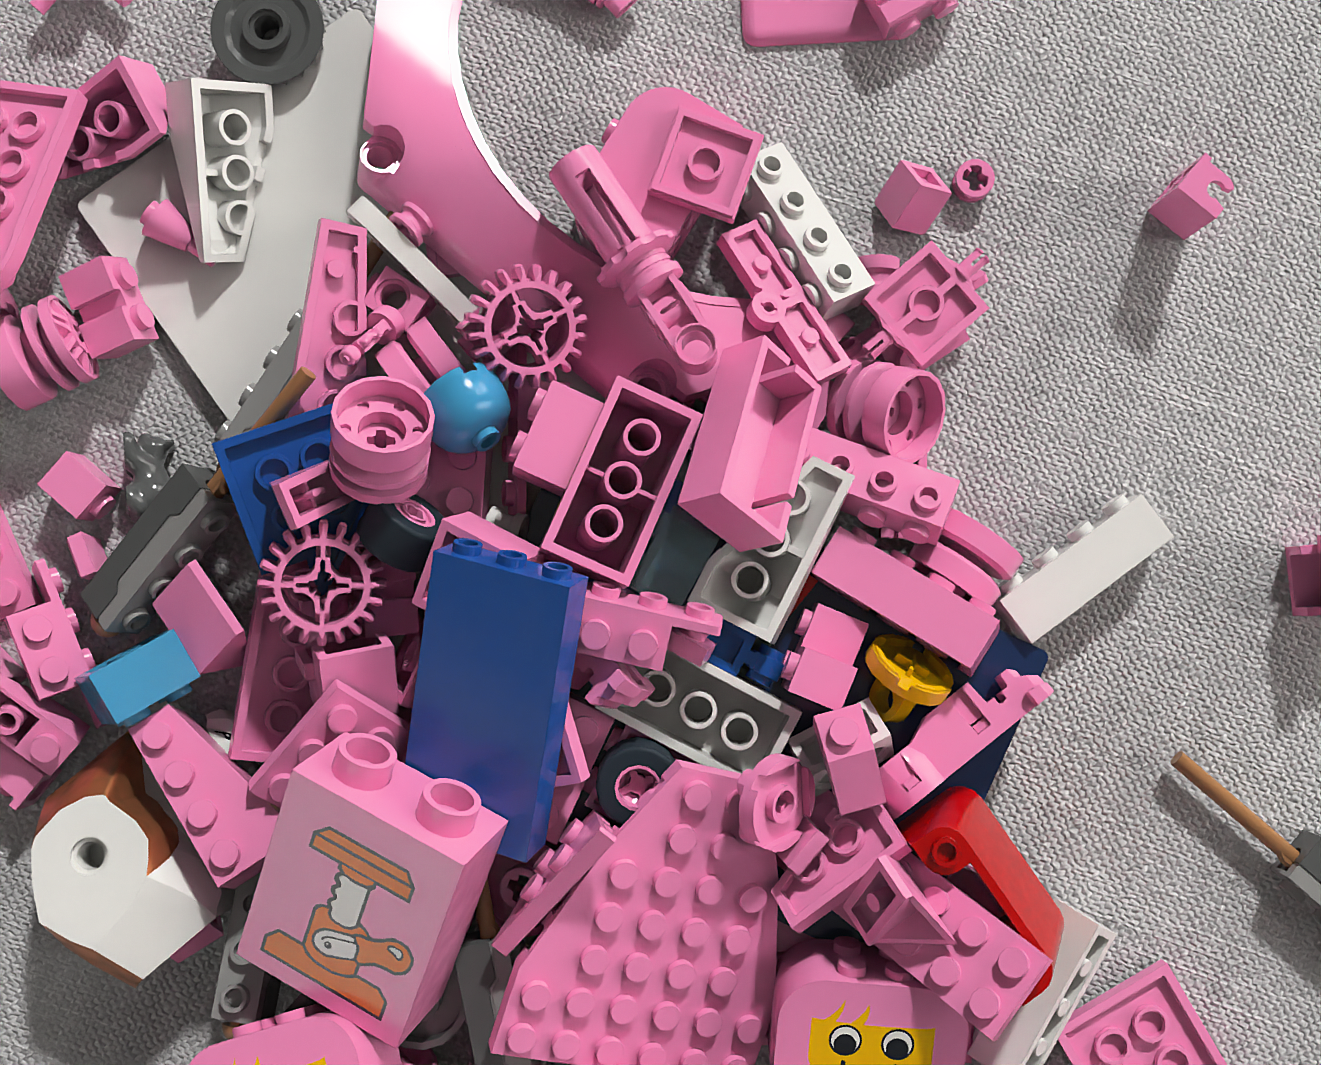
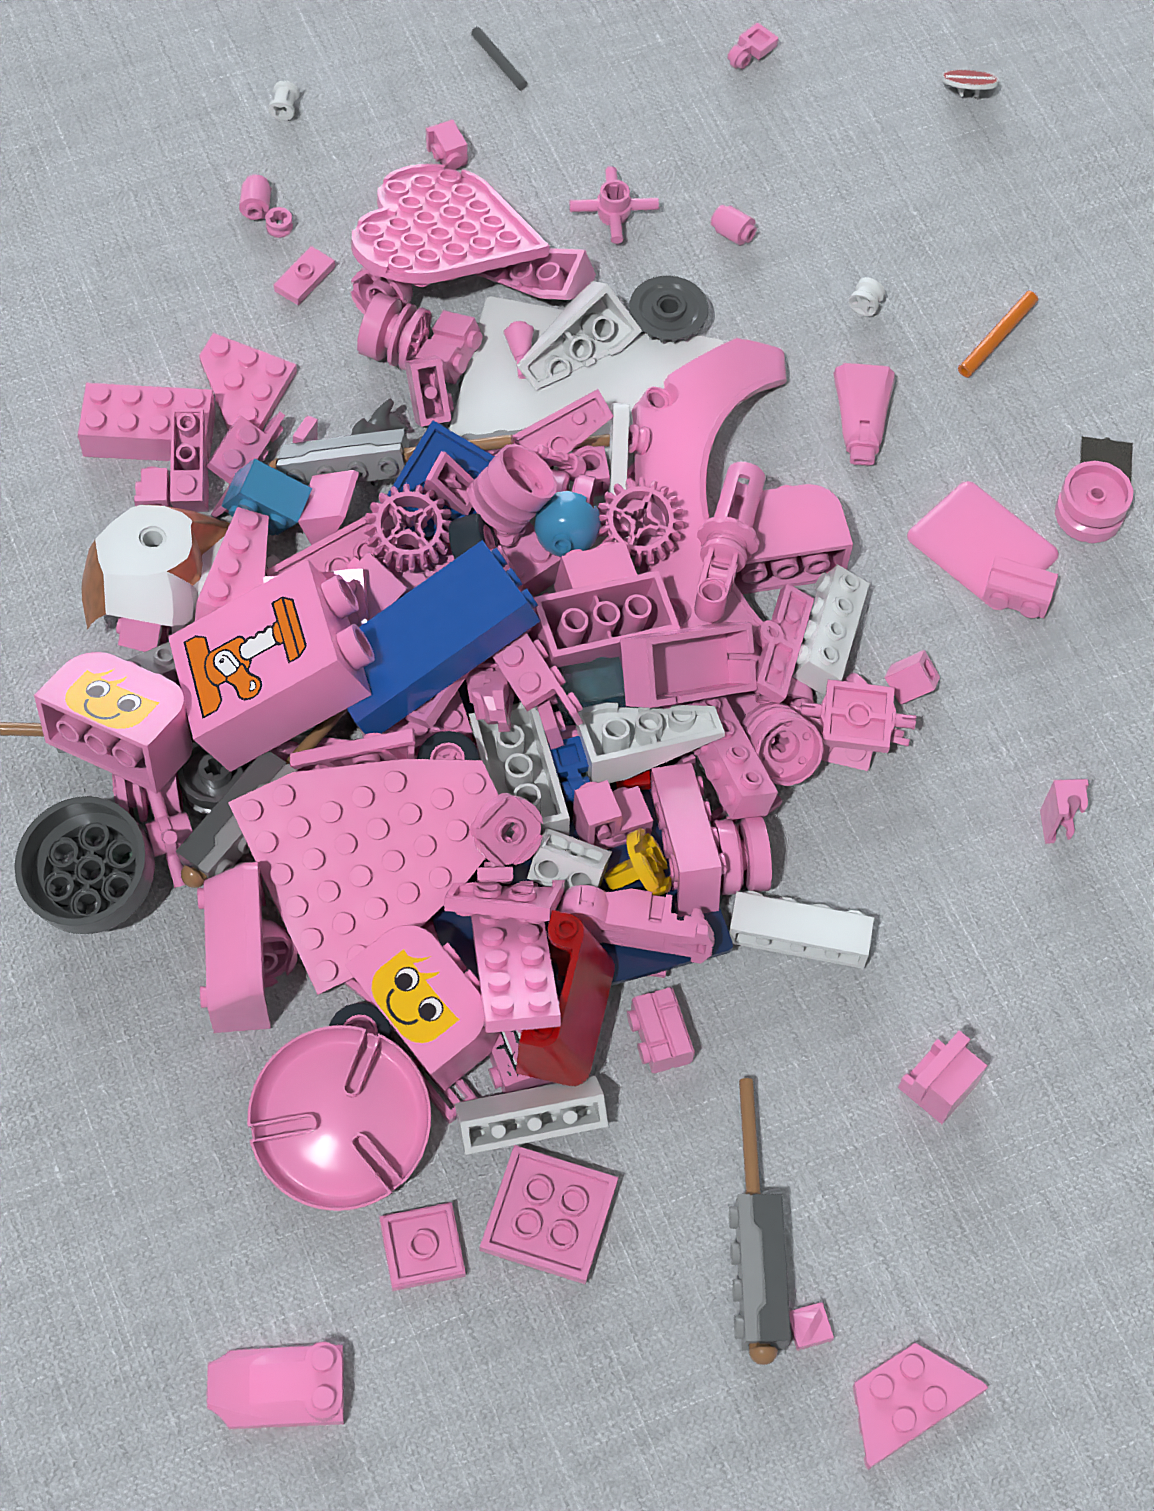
camera: 45 degrees right, 25 degrees down
(80, 487) = (339, 405): bright pink brick -> none
(157, 389) = (428, 390): none -> bright pink brick
(705, 164) = (813, 540): bright pink tile -> none
(849, 759) = (569, 847): bright pink slope -> none
(893, 909) = (510, 930): bright pink slope -> none
(984, 174) = (956, 693): bright pink bush -> none
(1061, 791) = (661, 1030): none -> bright pink brick

